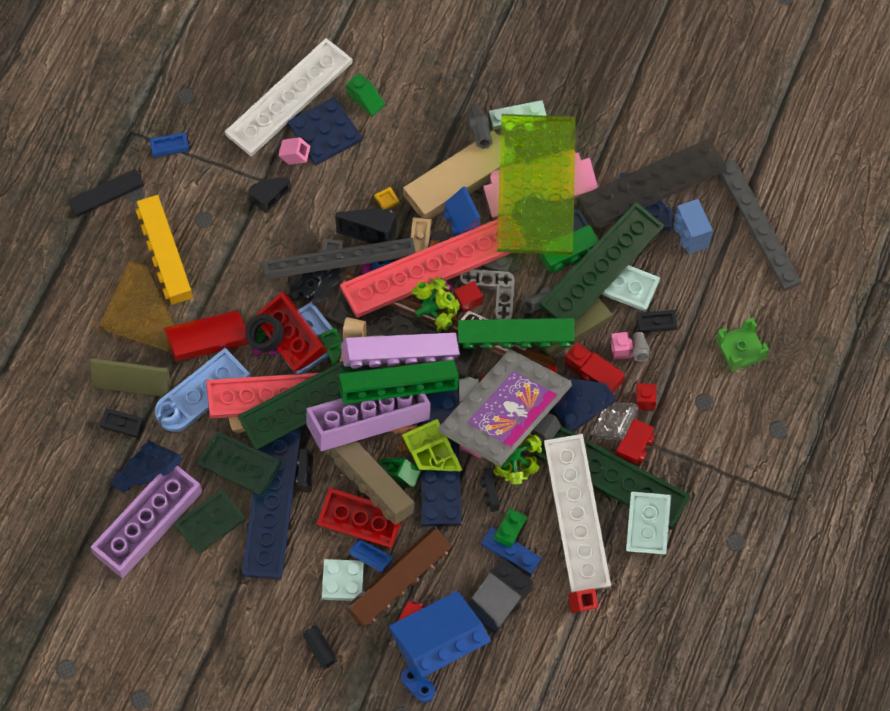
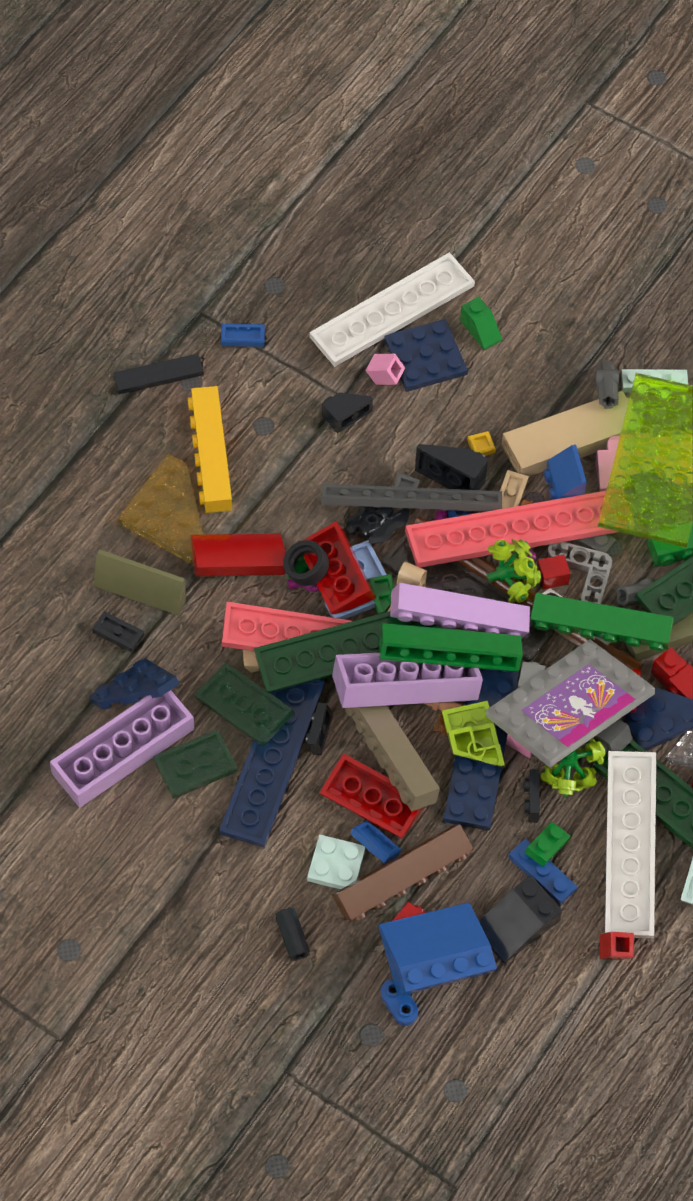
camera: 10 degrees right, 5 degrees down
(189, 398) = (203, 620): light blue plate -> none
(401, 471) = (432, 752): green slope -> none

